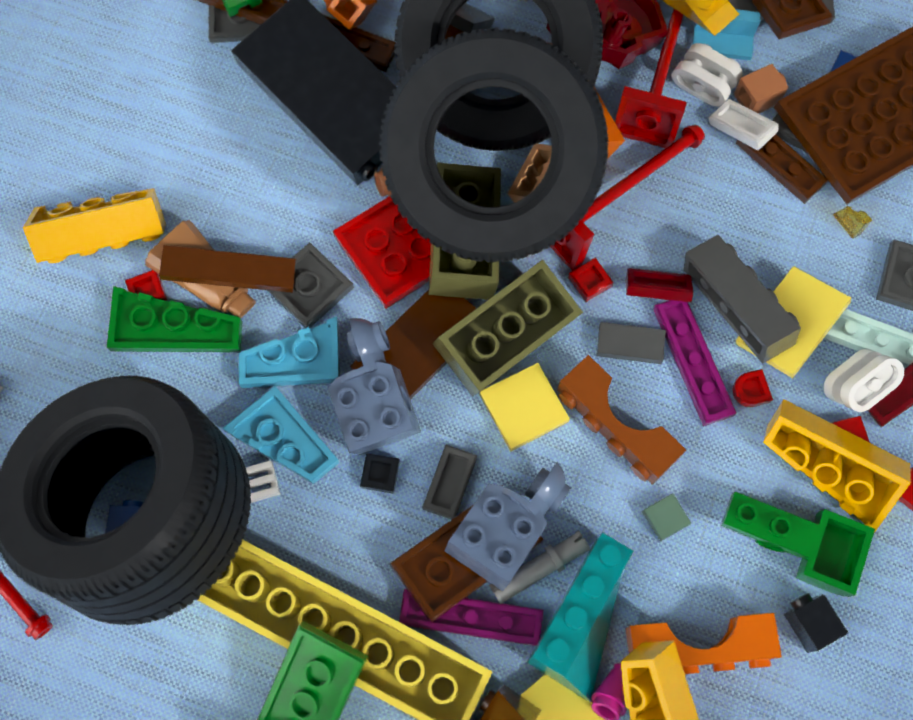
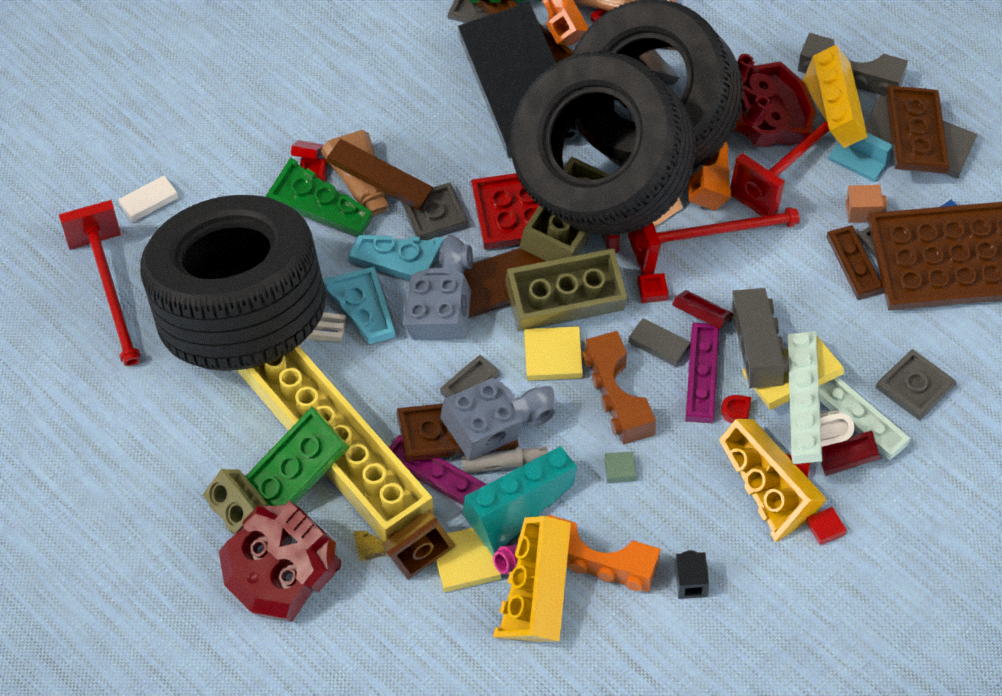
camera: 25 degrees right, 15 degrees down
(93, 225) = (297, 111): yellow wedge -> none
(127, 268) = (306, 149): none -> red tile
(380, 473) = (421, 356): black tile -> none
(707, 74) = (826, 176): white brick -> none
(743, 124) = (835, 222): white tile -> none
(830, 547) = (727, 532): green plate -> none
(839, 359) = (804, 398): none -> light aqua plate
(852, 221) = (886, 324): clear yellow tile -> none

